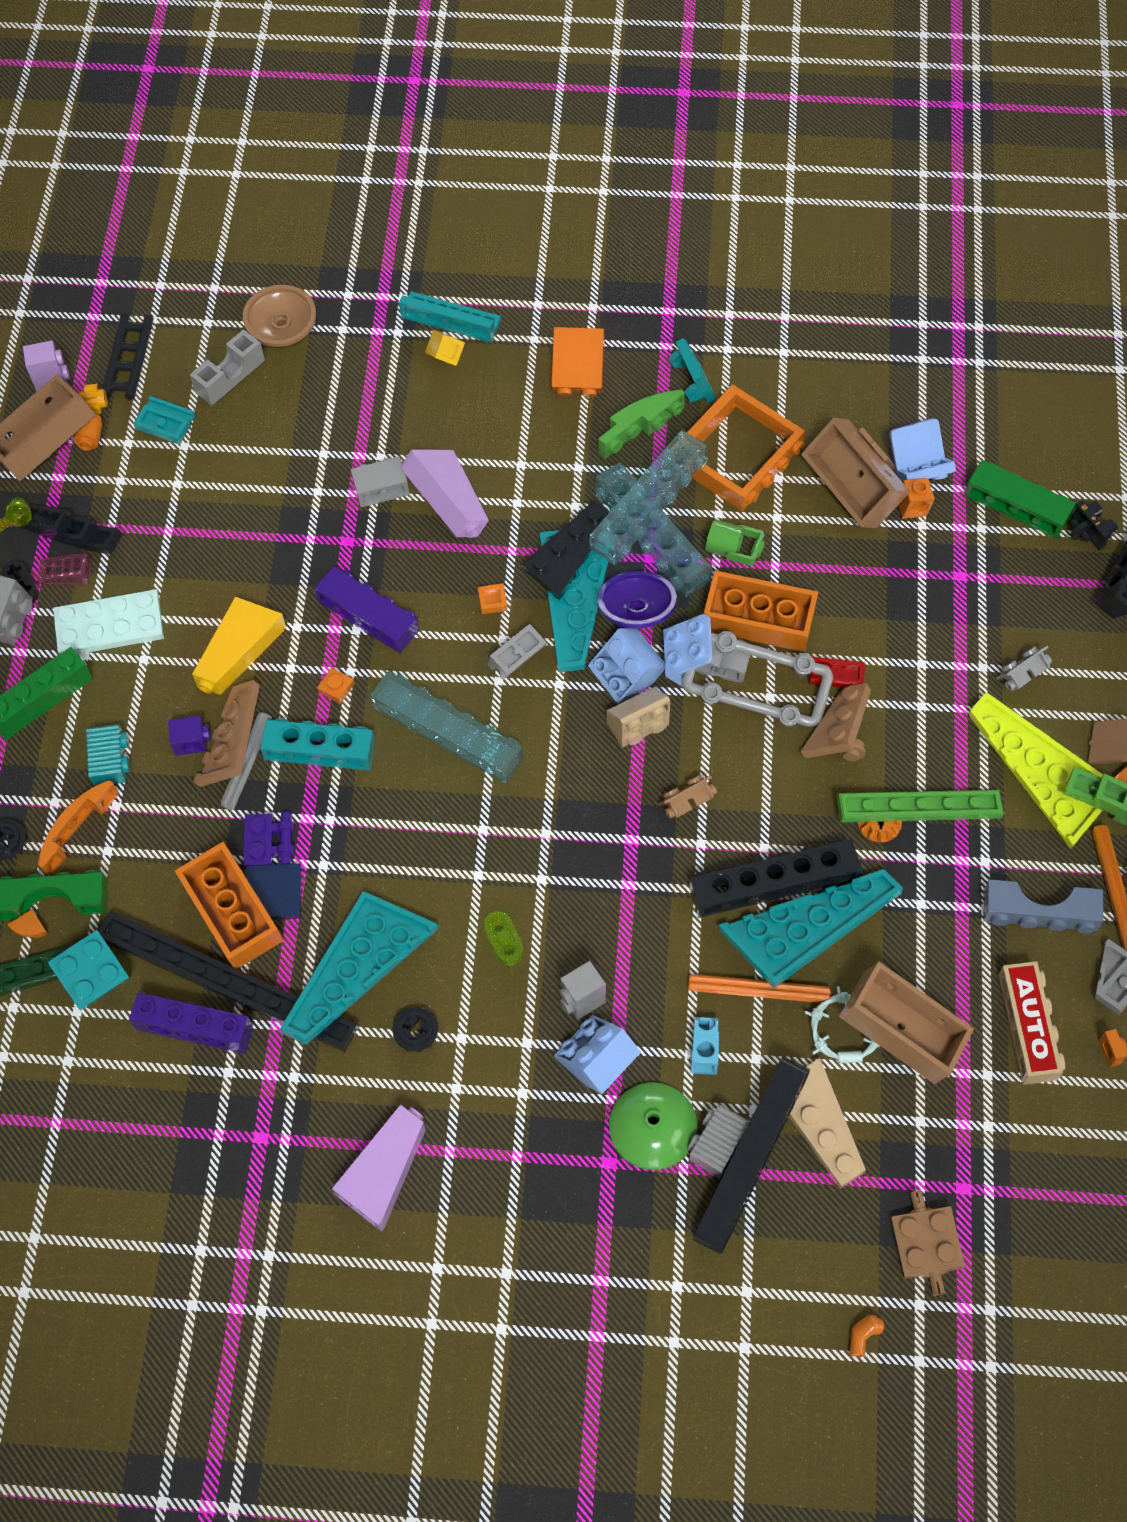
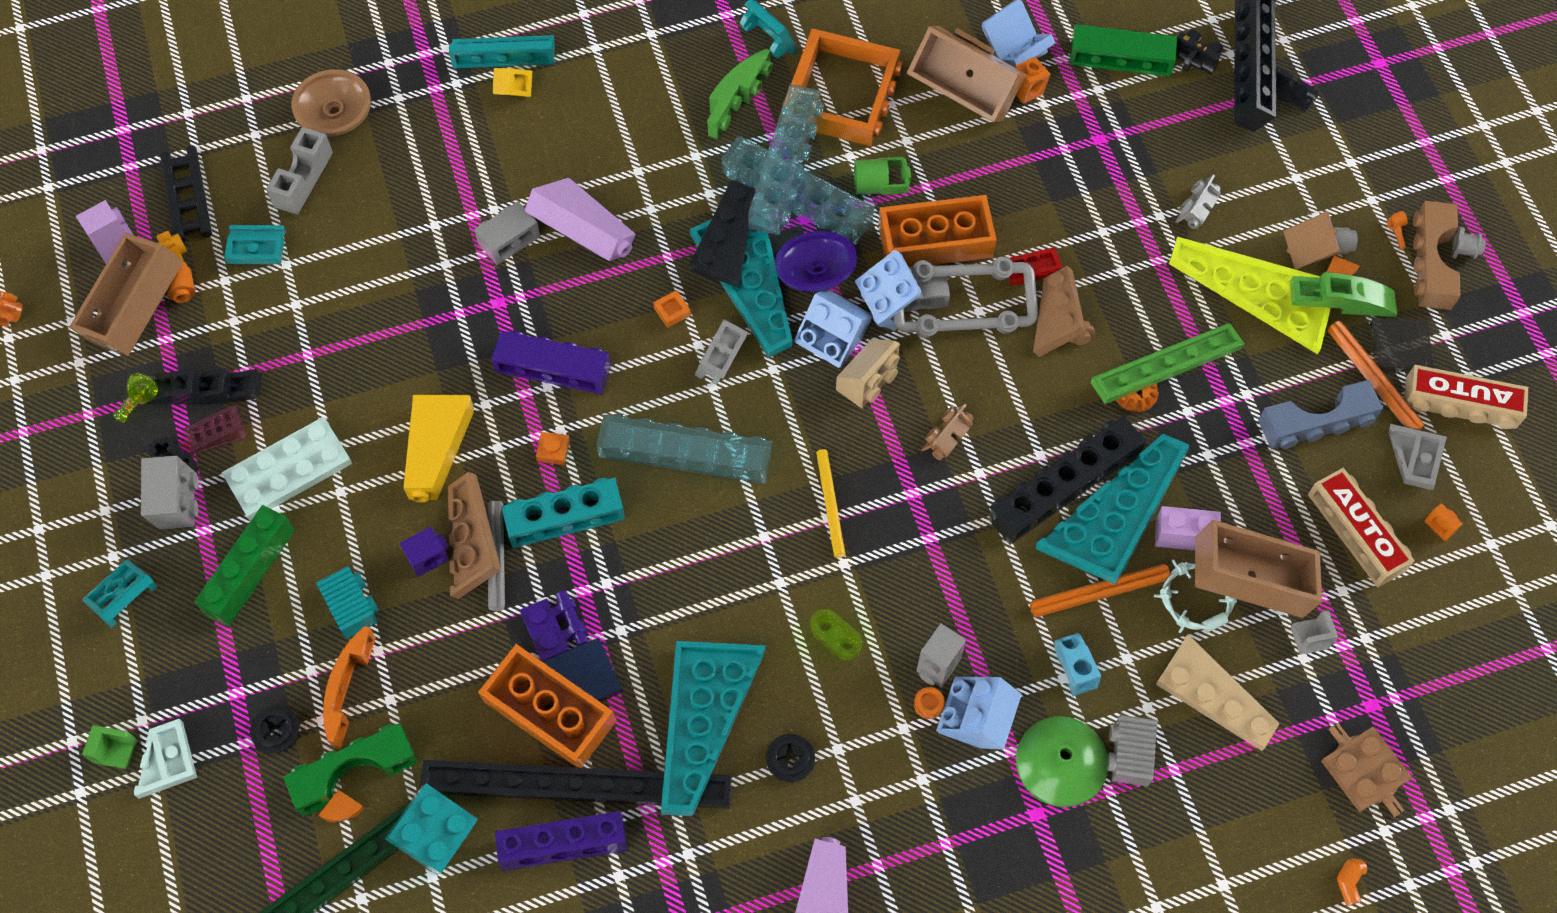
camera: 25 degrees left, 0 degrees up
(553, 822) = (830, 503): none -> yellow bar
(558, 1028) = (929, 703): none -> orange tile
(578, 361) = (652, 53): orange slope -> none
(751, 1155) = (1172, 752): black beam -> none
(857, 956) = (1180, 526): none -> lavender brick
(937, 1103) = (1314, 634): none -> light grey panel

